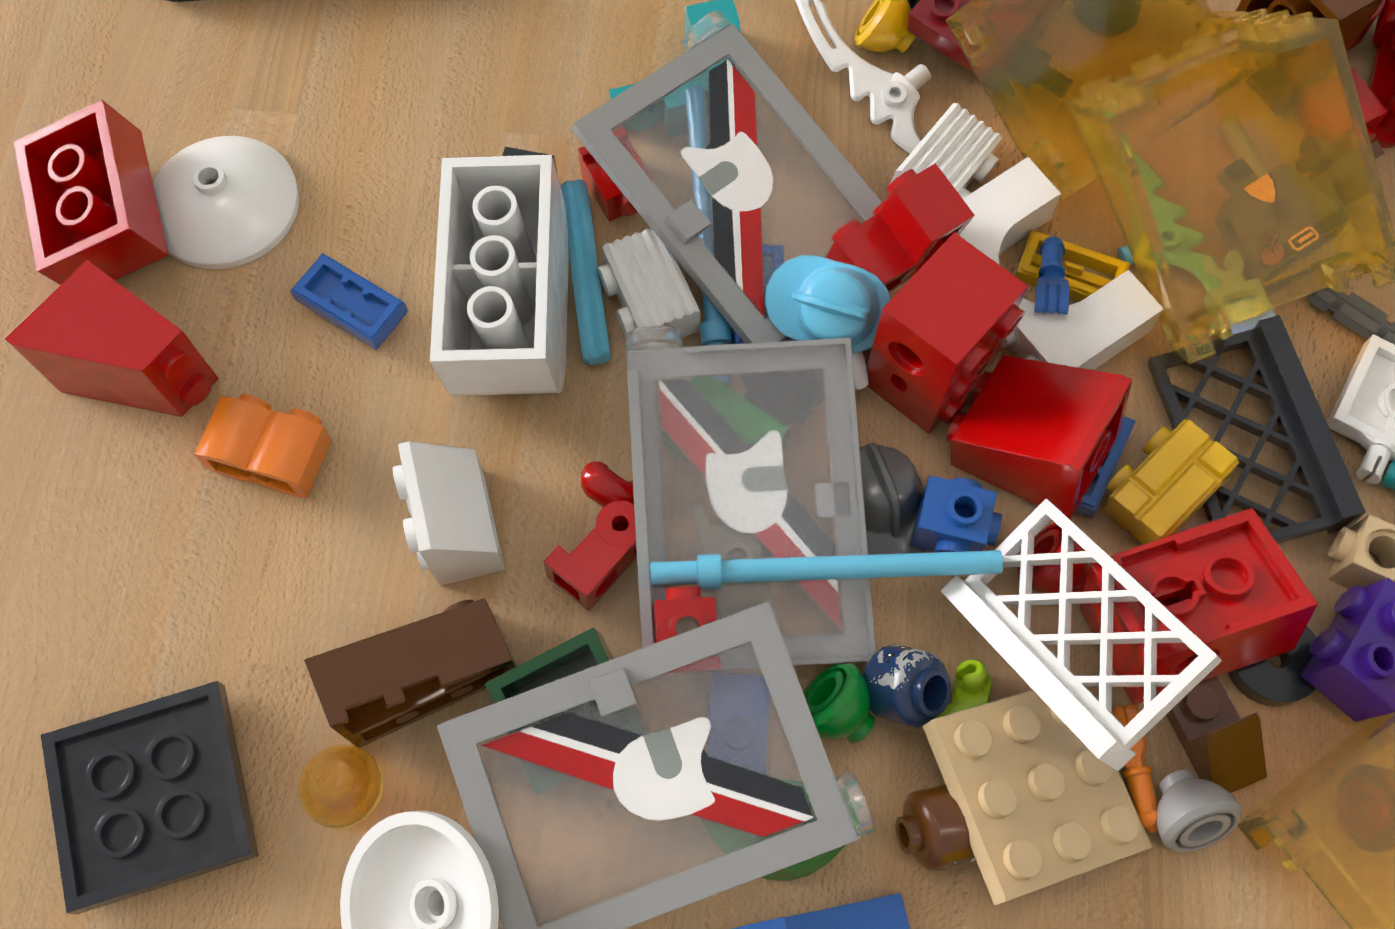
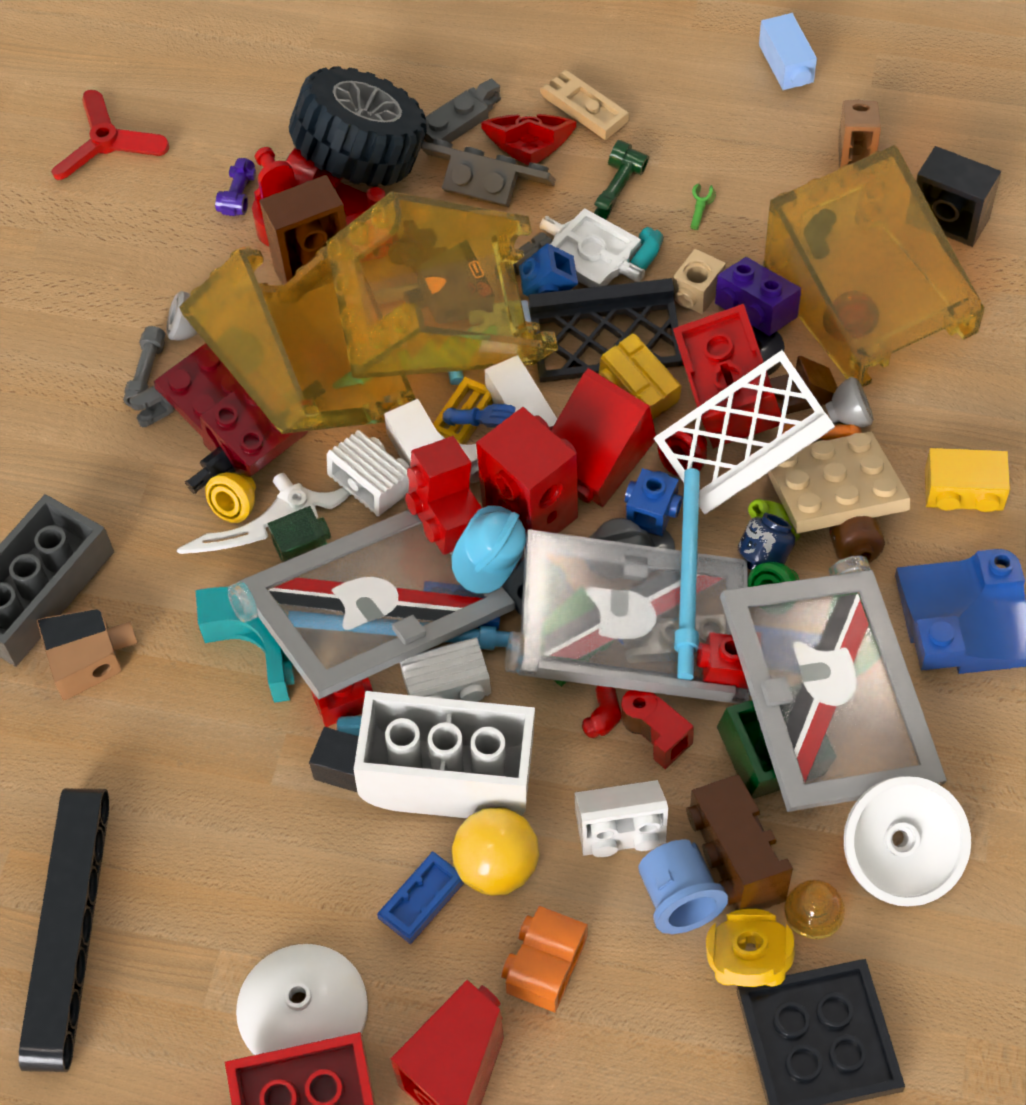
camera: 80 degrees left, 10 degrees down
(239, 718) = (750, 968): none -> yellow plate
(350, 594) = (681, 887): none -> medium blue piece
(390, 369) = (495, 851): none -> yellow piece
(834, 99) = (298, 533): none -> clear green brick
(1331, 341) = (548, 271): none -> blue brick

